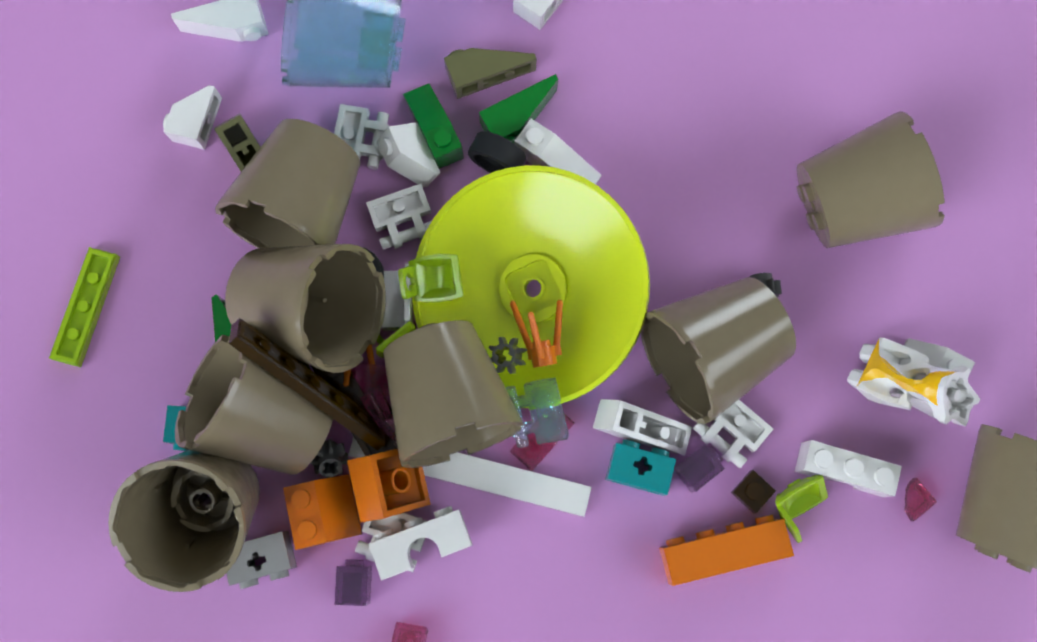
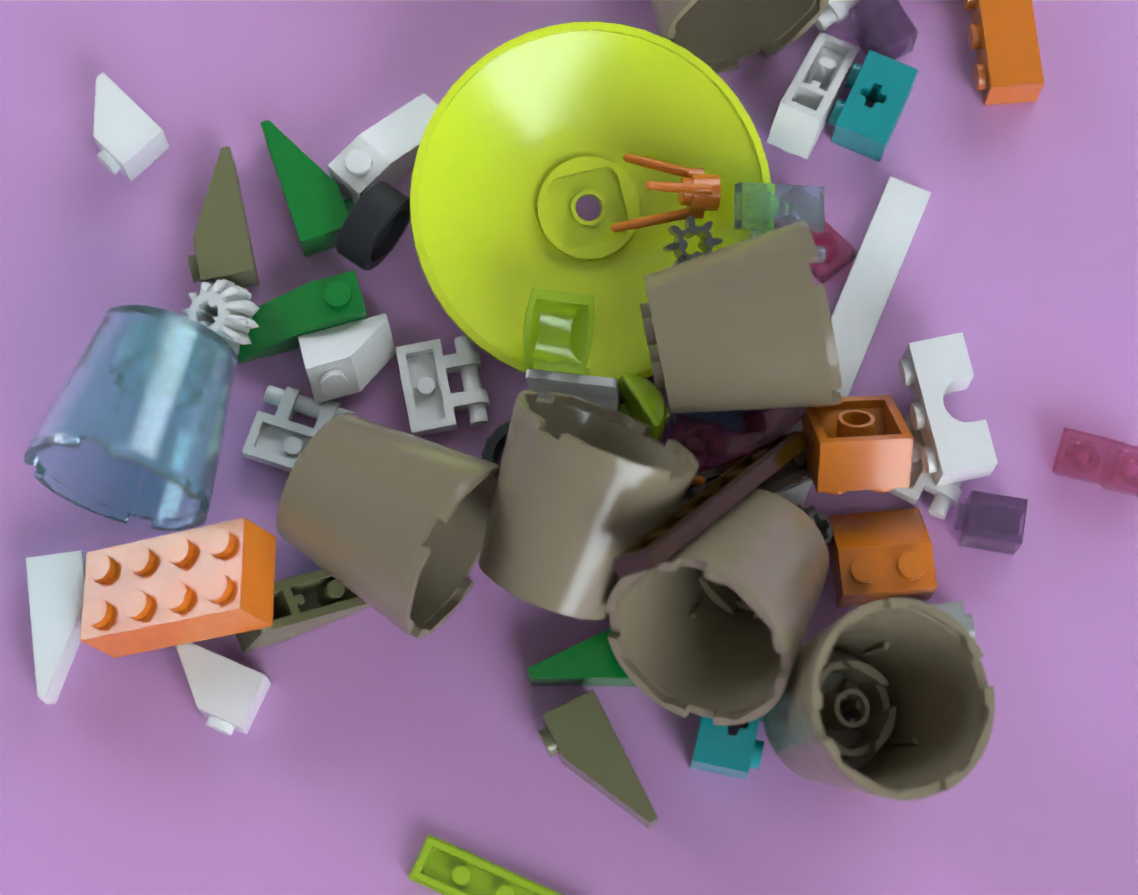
camera: 80 degrees left, 5 degrees down
(171, 347) = (594, 753): none -> olive slope
(236, 77) = (179, 588): none -> brick
(423, 75) = (225, 311): none -> white gear

